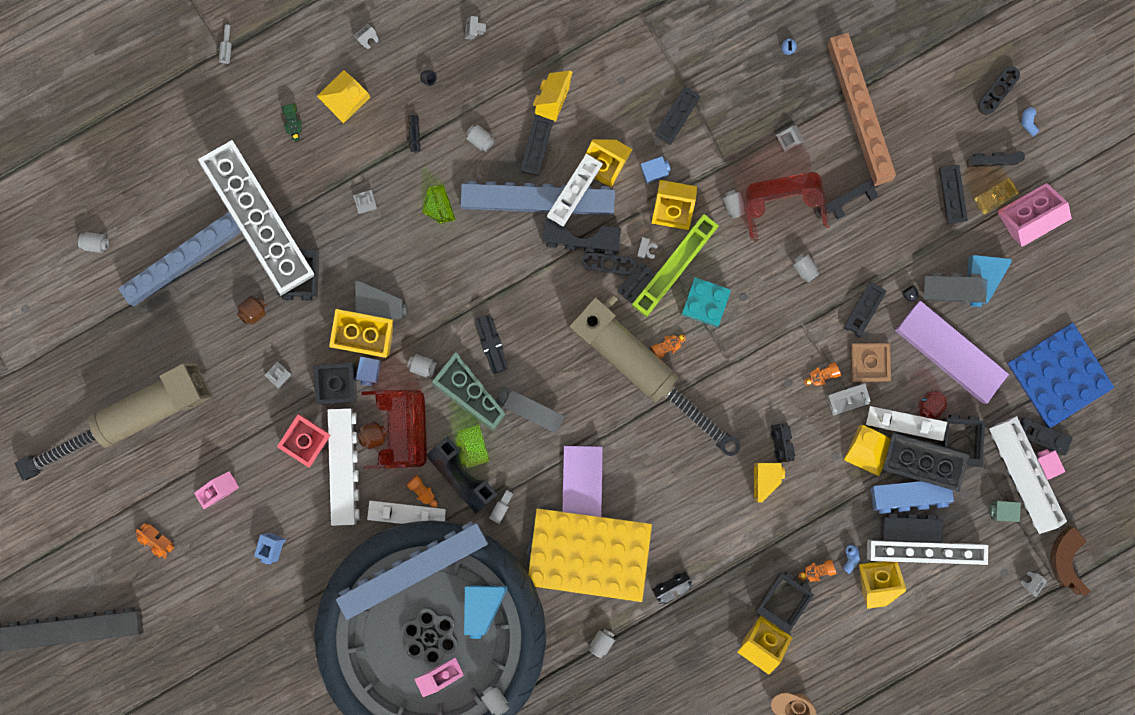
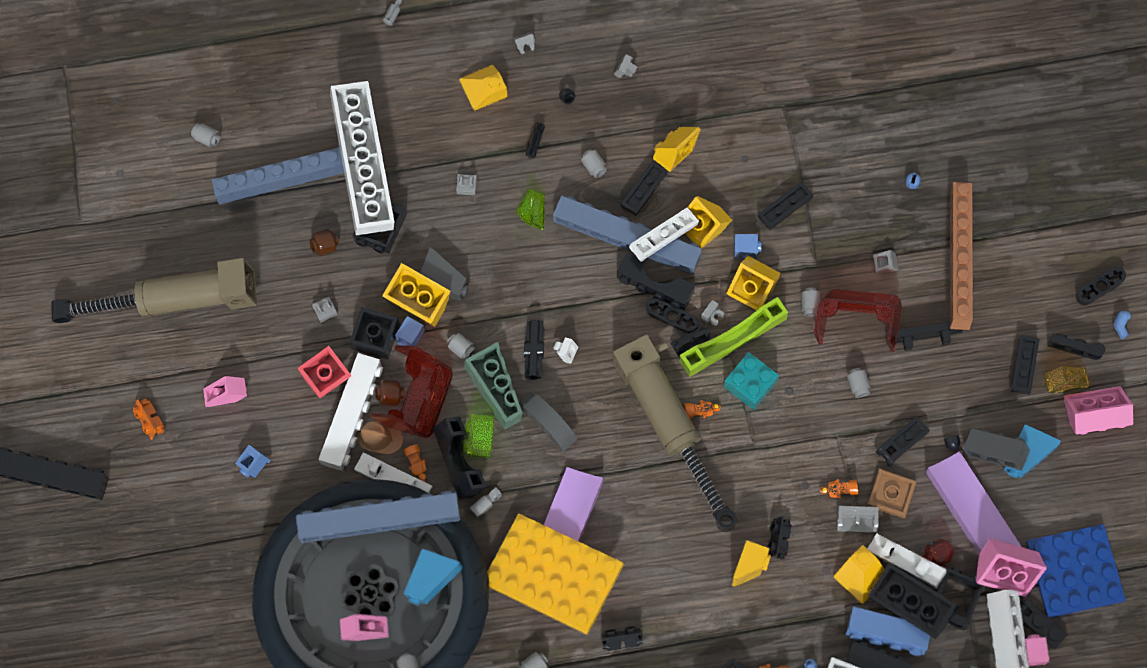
camera: 20 degrees right, 15 degrees down
(292, 125) = (427, 96): dark green piece -> none
(379, 481) = (379, 438): none -> medium nougat piece
(522, 333) = (566, 350): none -> white tile
(1003, 397) = (1009, 567): none -> bright pink slope

